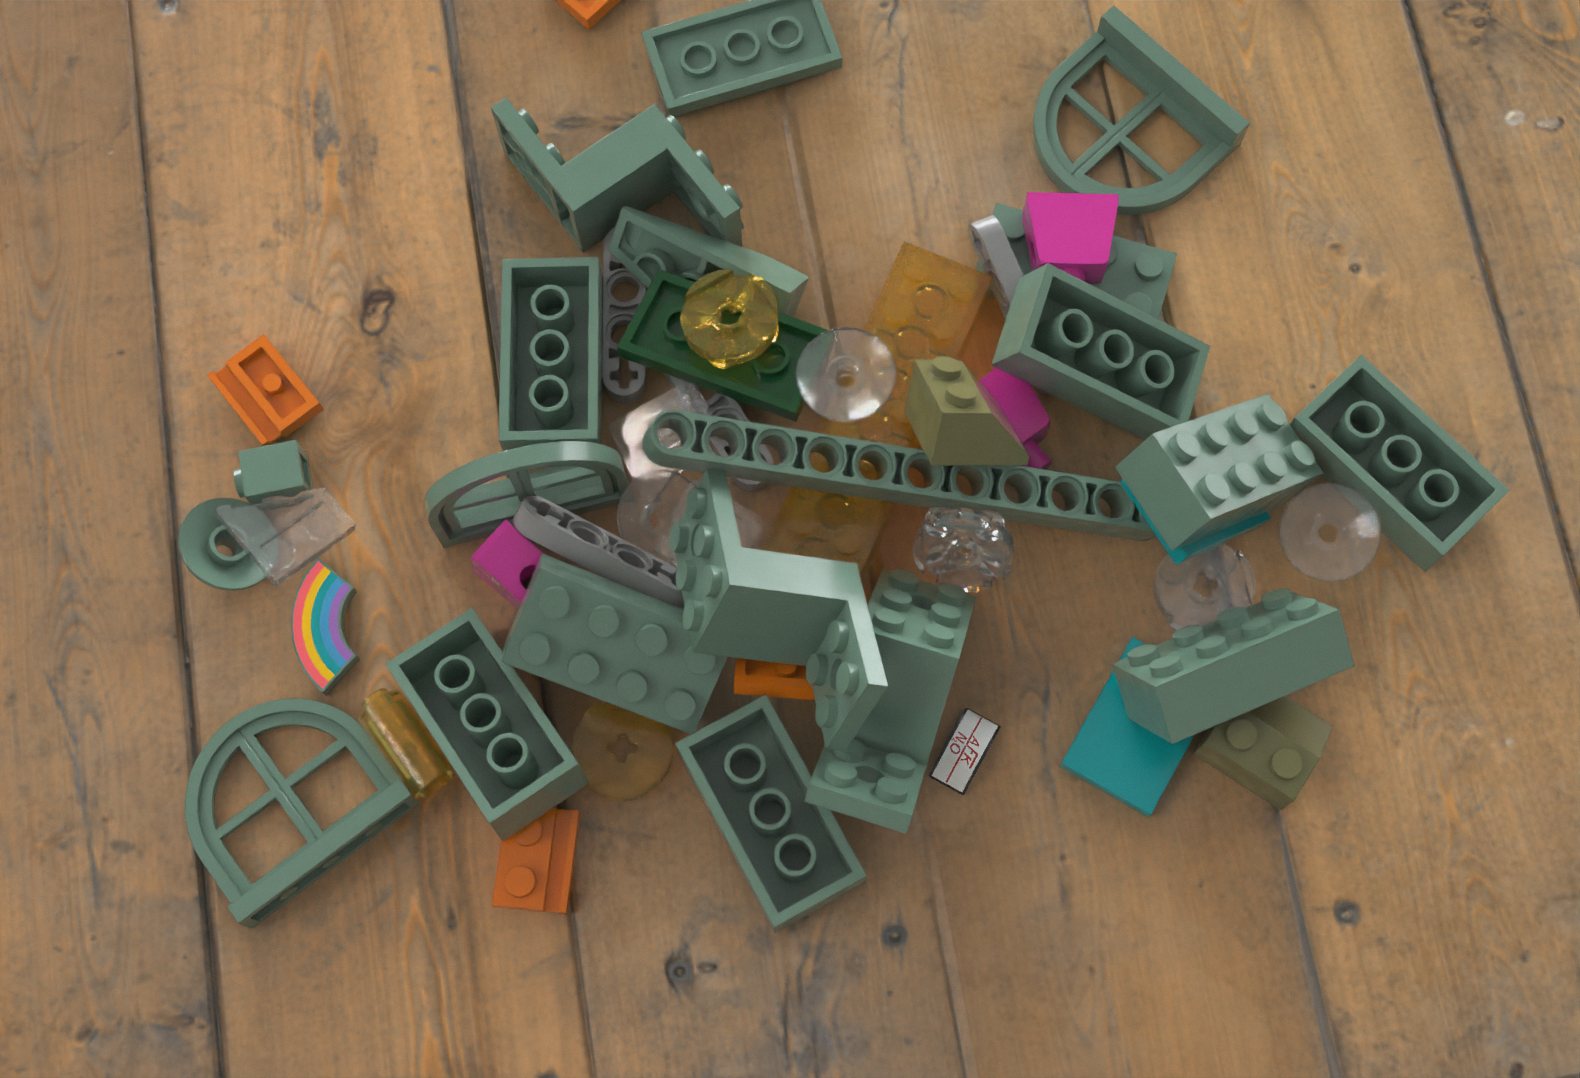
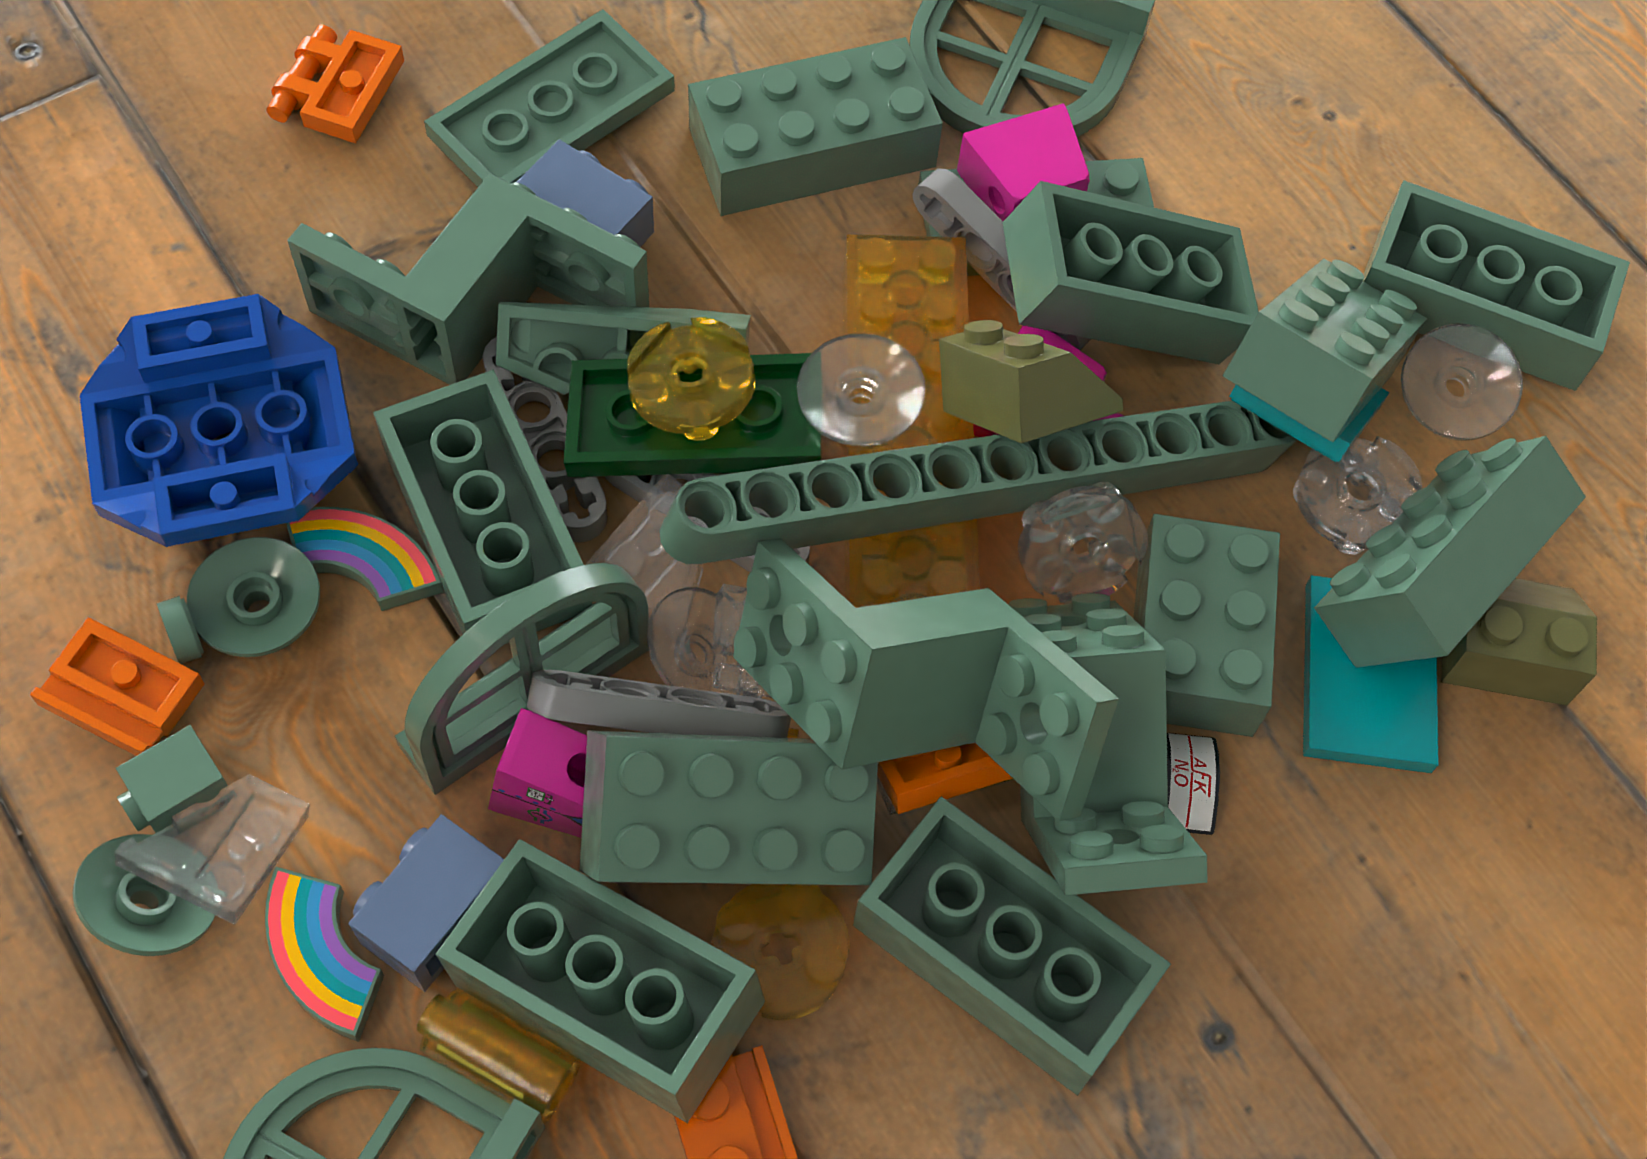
camera: 30 degrees left, 10 degrees down
(320, 365) = (180, 629): none -> sand green tile
(370, 342) = (242, 575): none -> sand green dish
(390, 185) = (203, 375): none -> blue piece
(398, 620) = (423, 899): none -> sand blue brick
(464, 350) = (368, 552): none -> tile
(730, 142) = (582, 184): none -> sand blue brick
(930, 137) = (813, 125): none -> sand green brick
(1027, 641) = (1213, 607): none -> sand green brick

